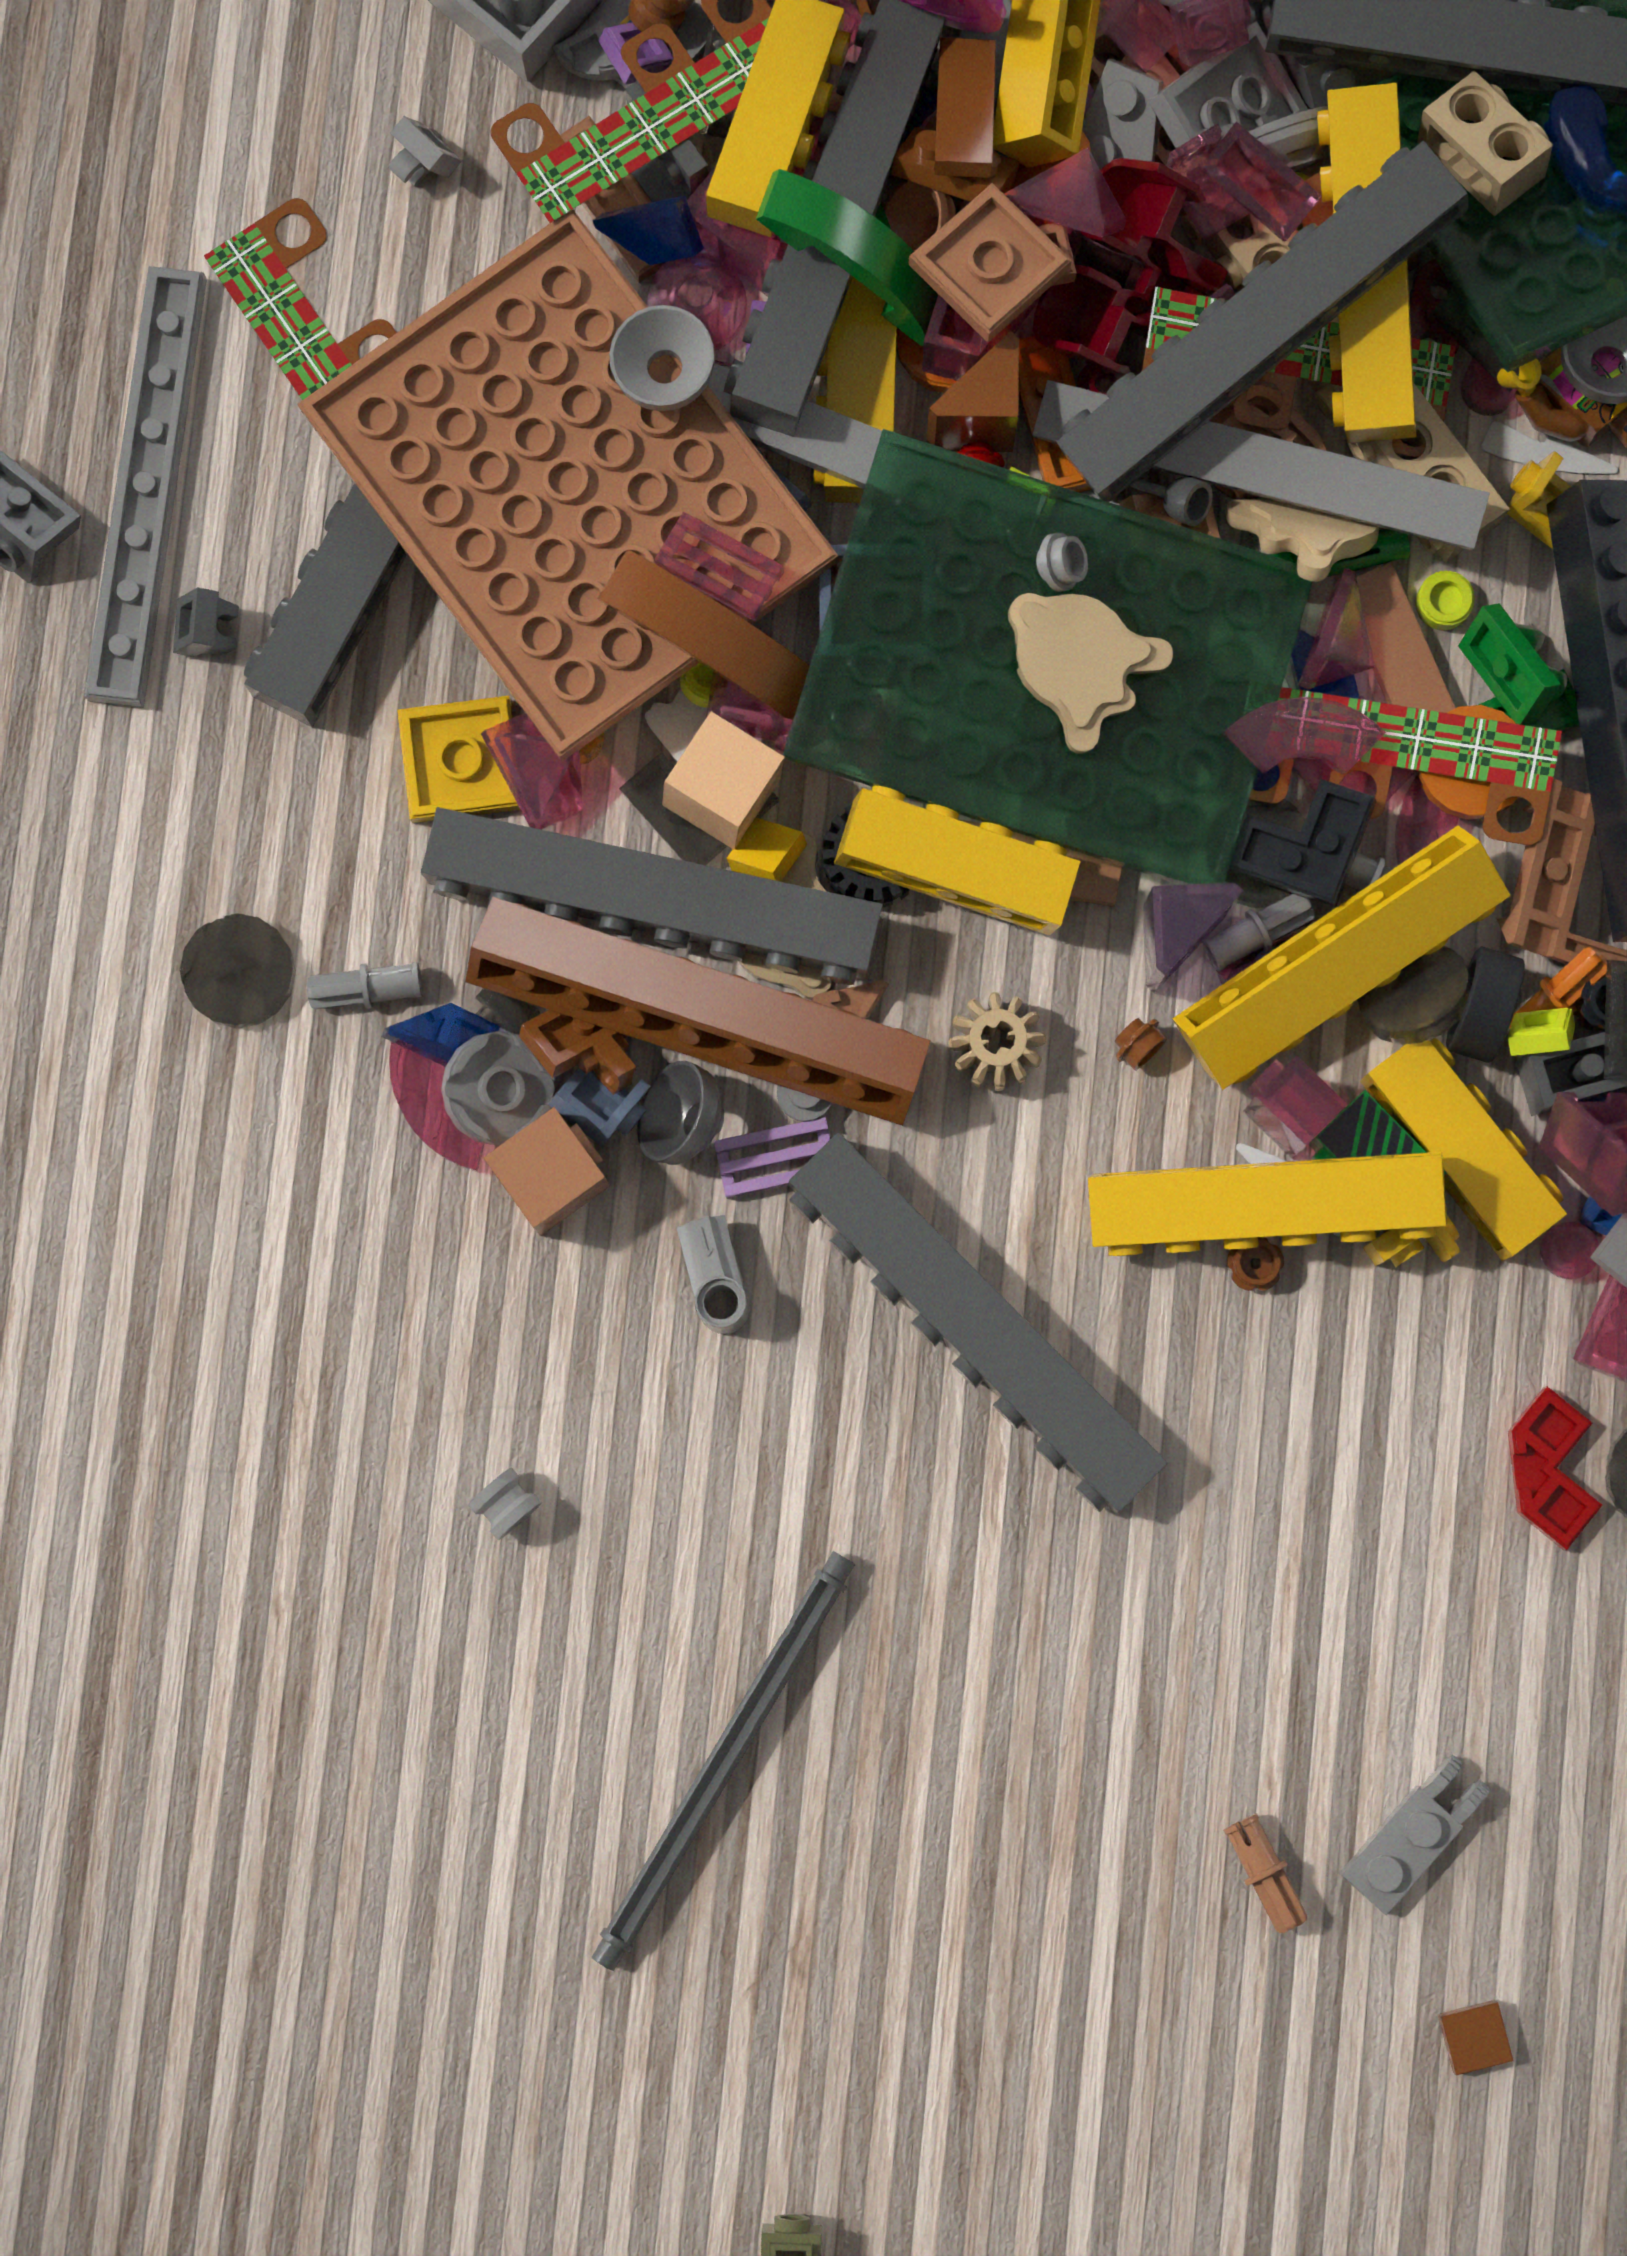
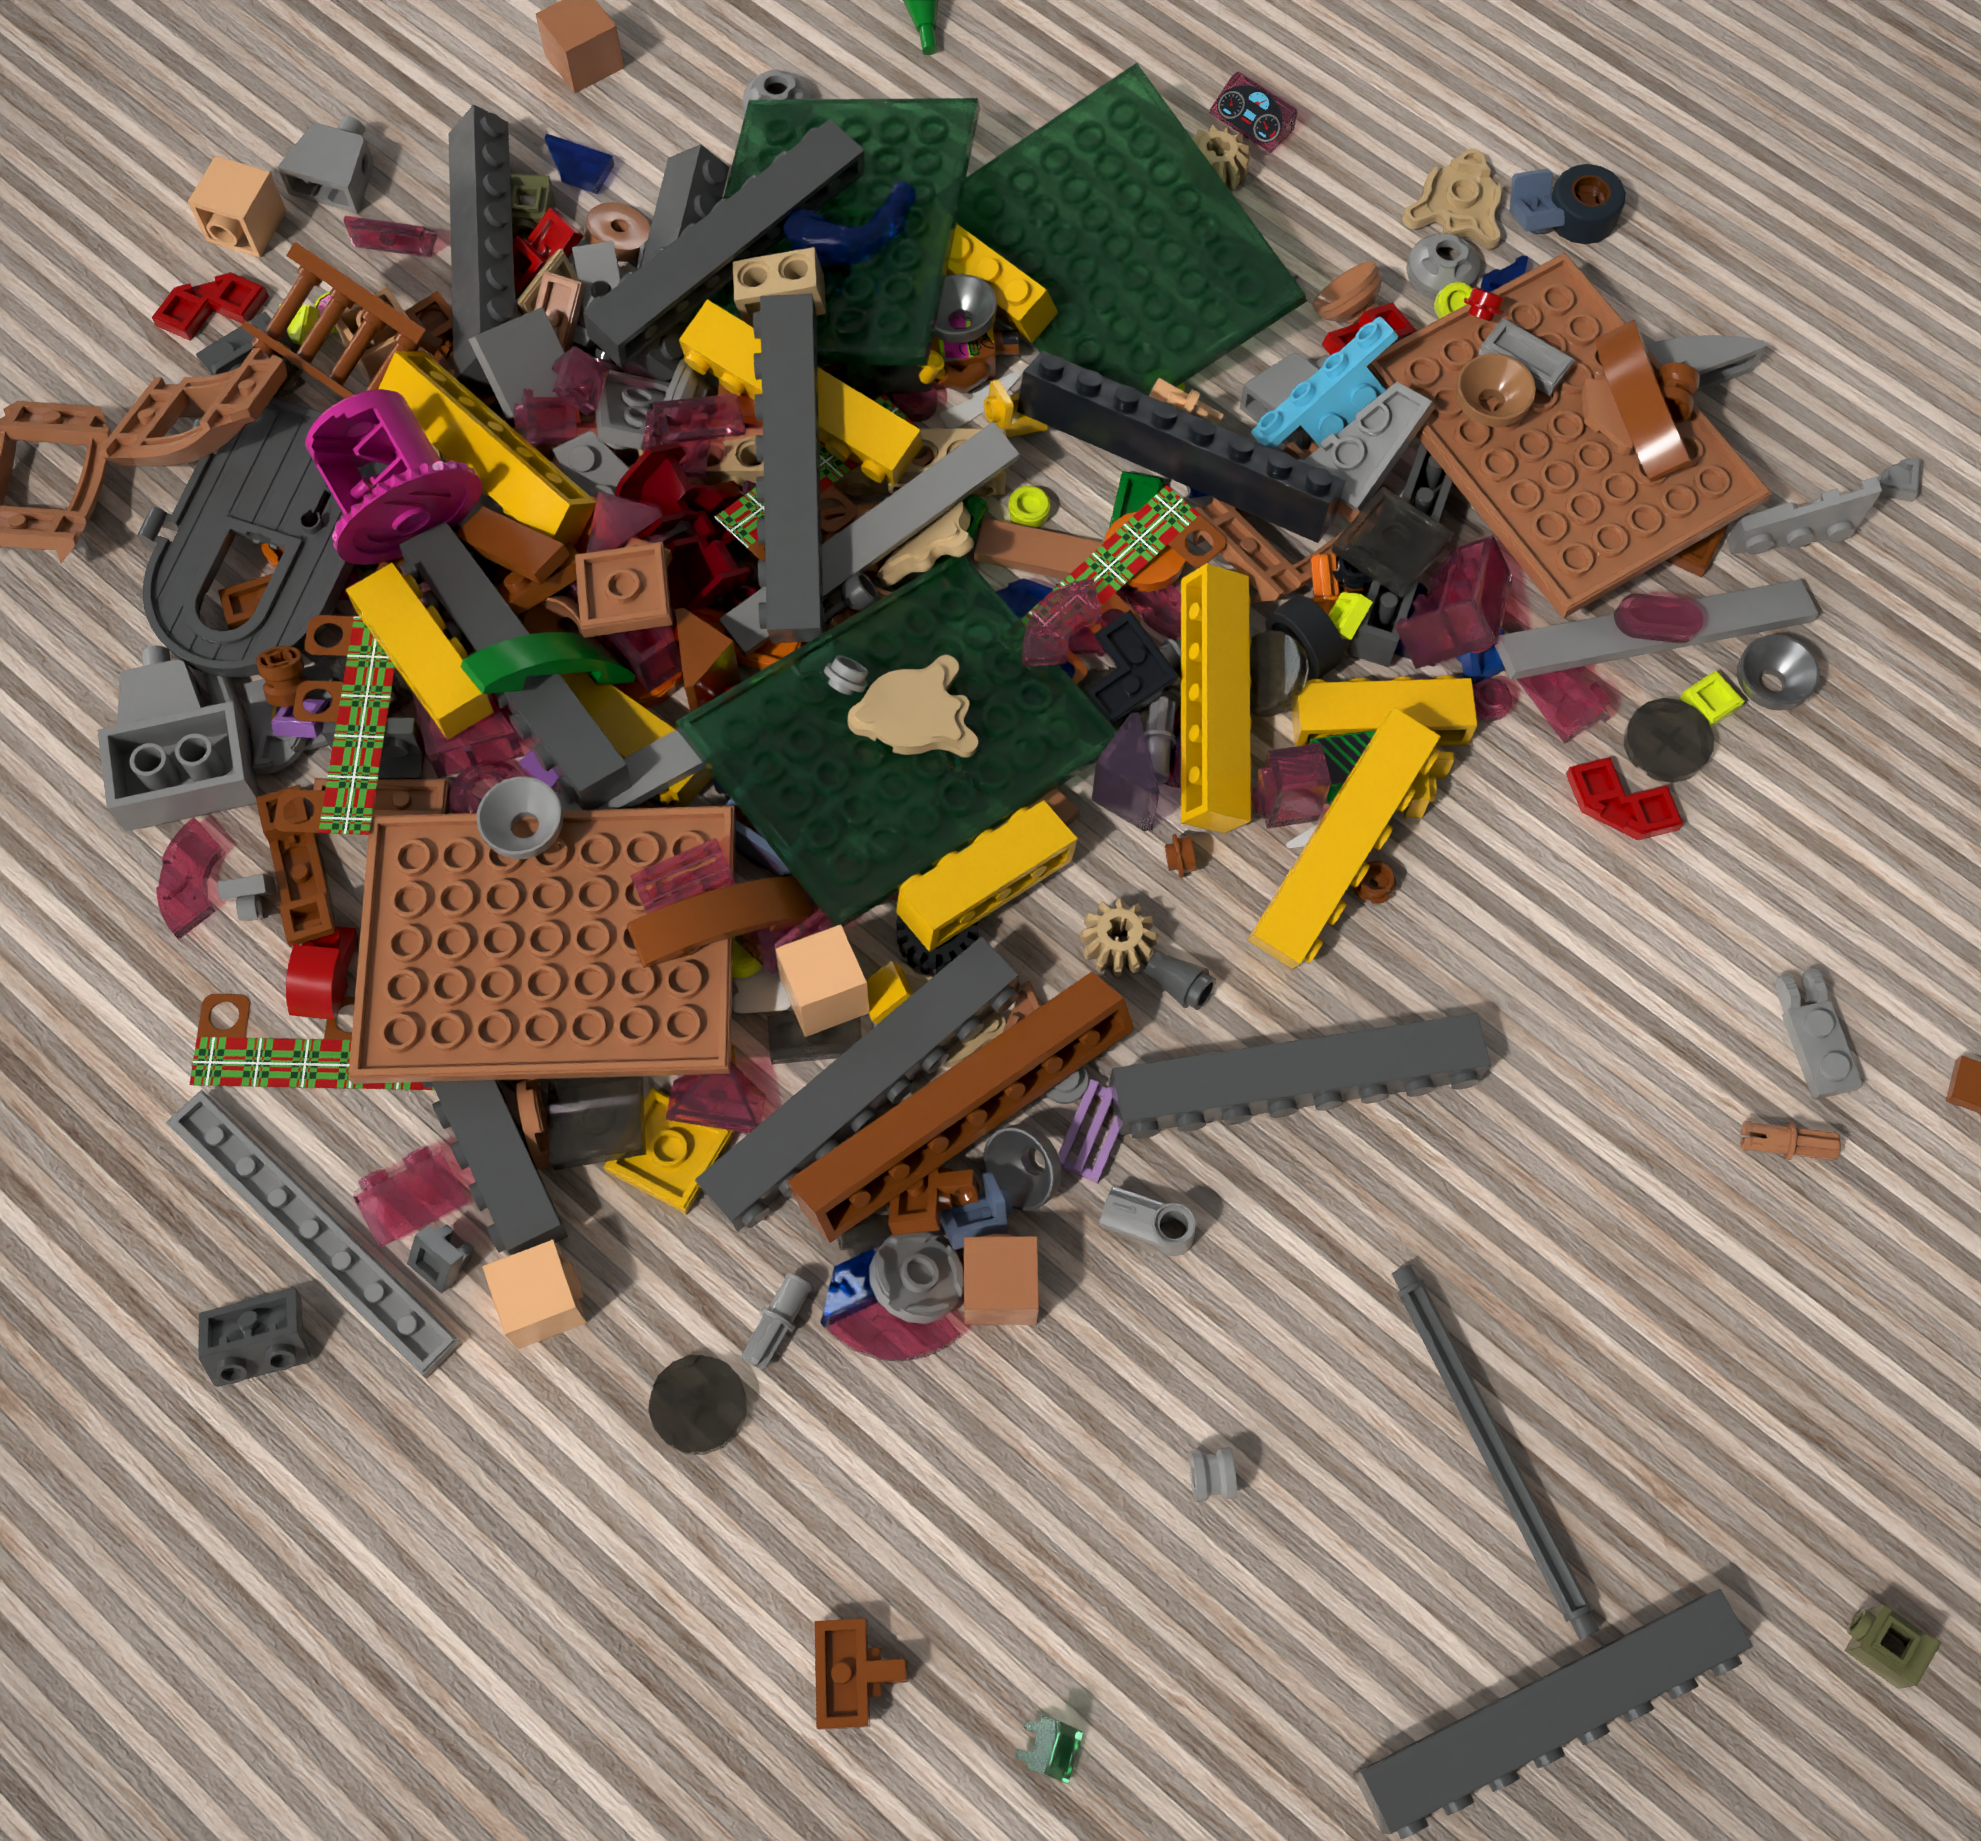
camera: 60 degrees left, 15 degrees down
(89, 1290) = (849, 1673): none -> dark orange hinge
(147, 1523) = (1053, 1749): none -> clear green tile
(225, 741) = (535, 1294): none -> light nougat head
(239, 547) = (409, 1195): none -> clear pink bracket
(392, 611) = (534, 1120): none -> nougat tile
(393, 283) = (318, 974): none -> red brick
(398, 77) = (184, 878): none -> clear pink tile
(432, 669) = (595, 1120): none -> clear smoke tile
(478, 187) = (299, 872): none -> dark orange slope
(503, 1972) = (1552, 1712): none -> dark grey brick
(653, 230) = (426, 782): clear blue tile -> none
(998, 1136) = (1182, 980): none -> dark grey cone
(1341, 639) = (1006, 571): clear pink slope -> none
(1510, 665) = (1100, 491): green tile -> none

